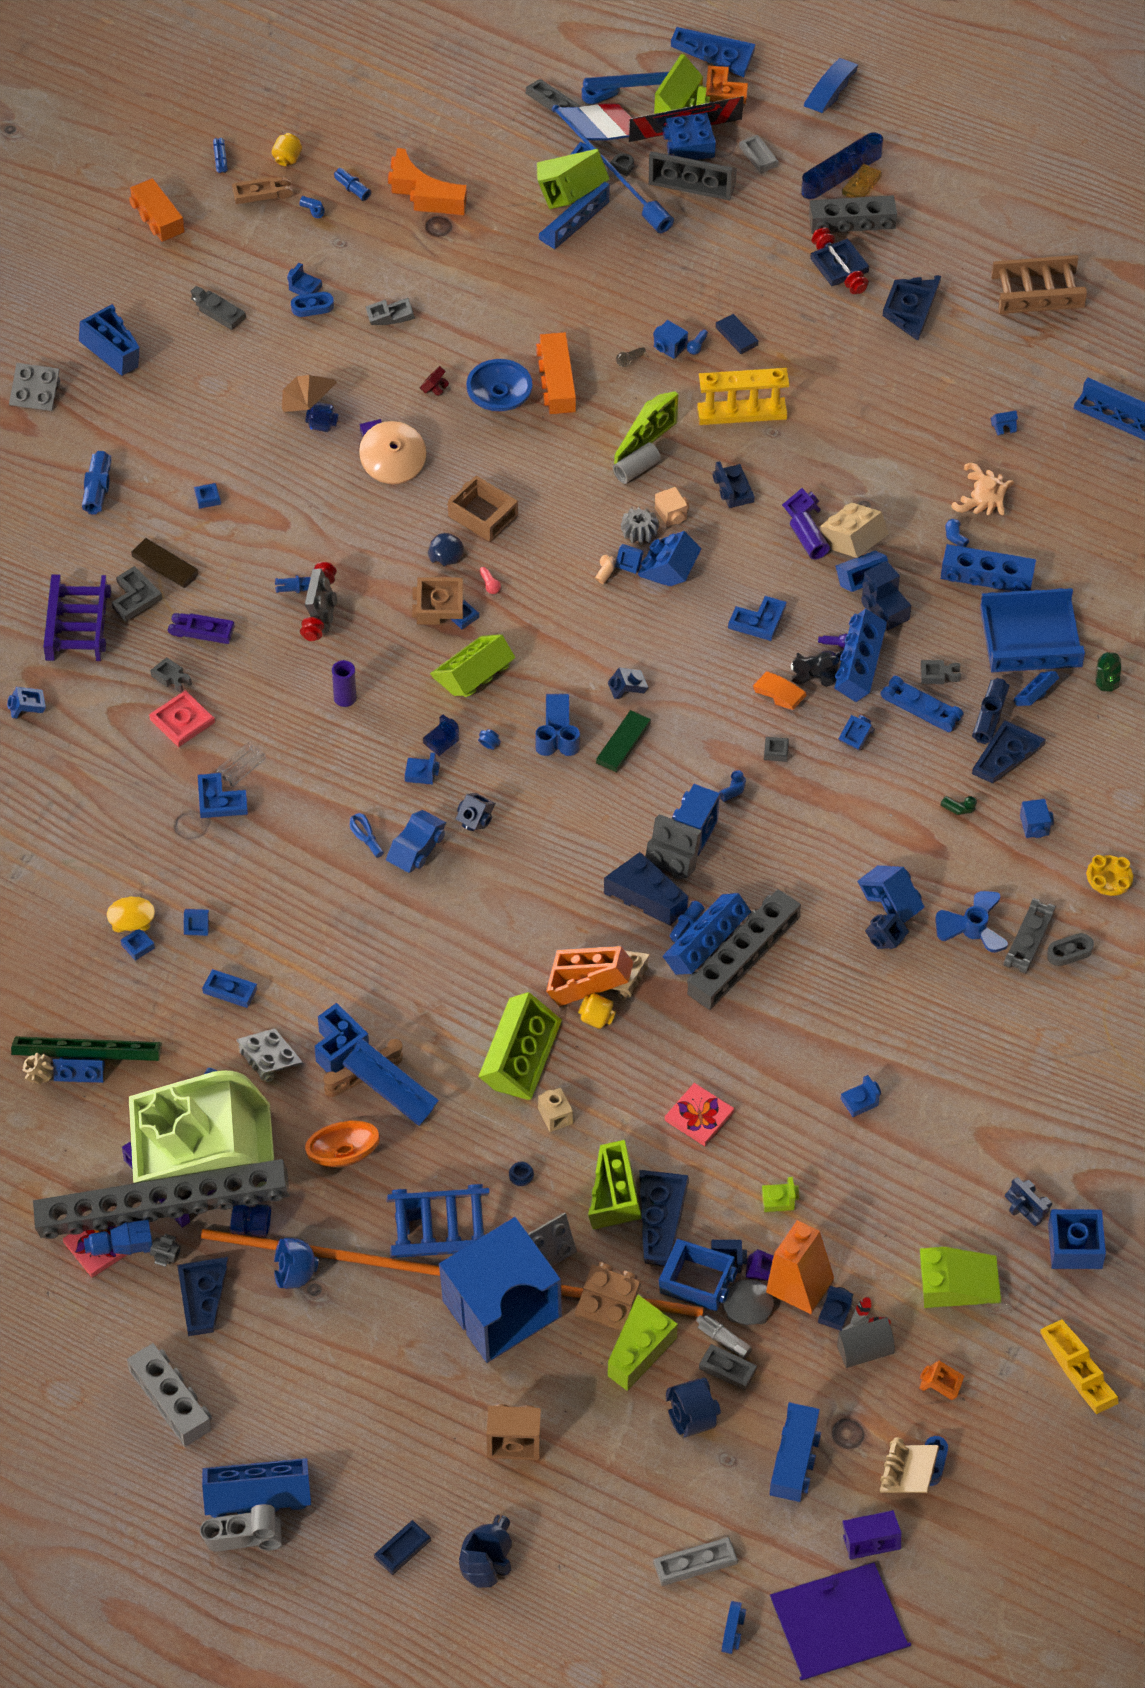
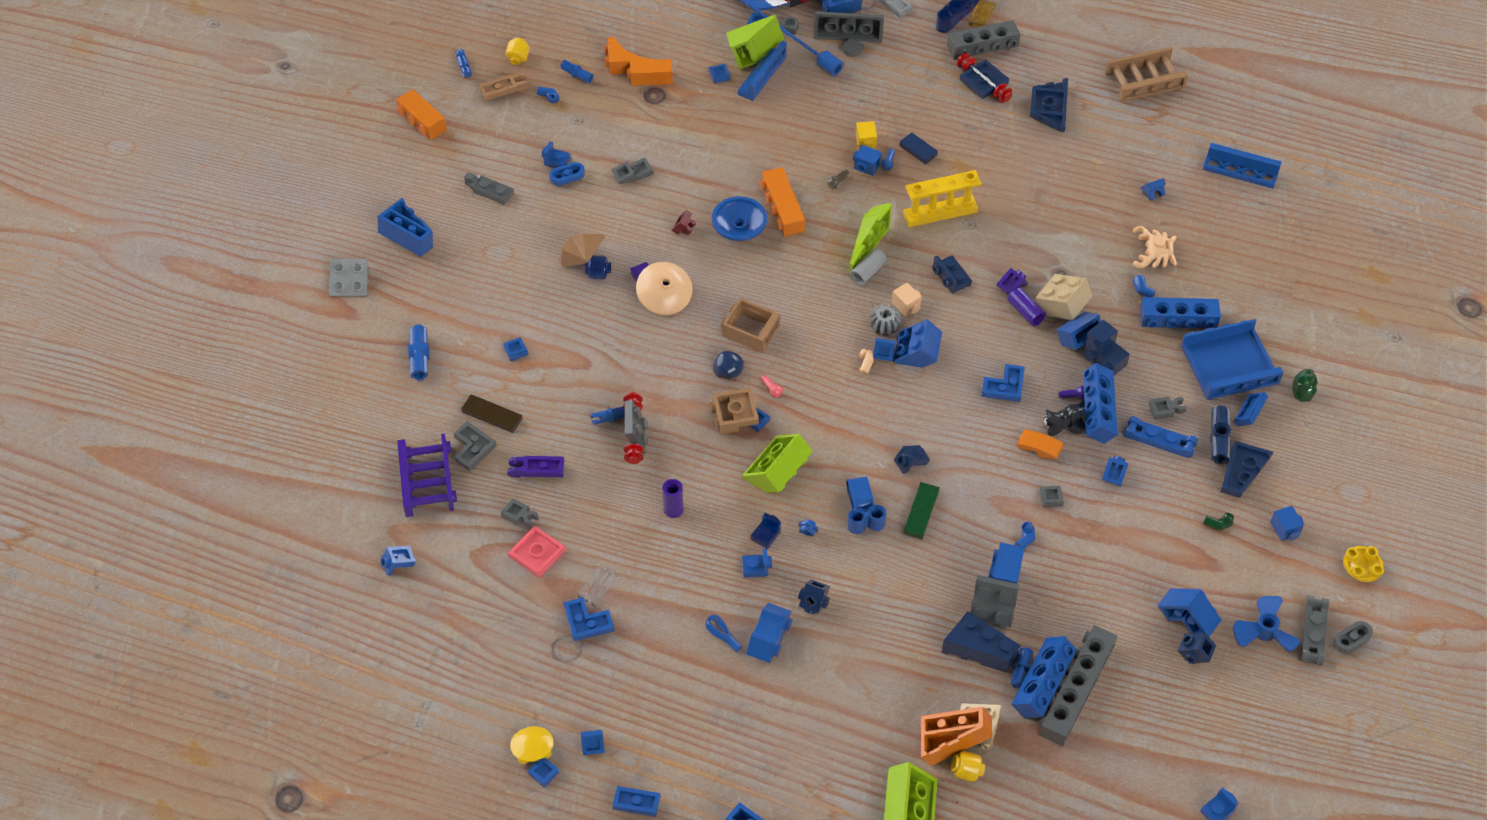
camera: 10 degrees left, 0 degrees up
(522, 210) = (719, 73): none -> blue tile
(677, 308) = (866, 134): none -> yellow brick
(692, 202) = (853, 47): none -> dark grey tile

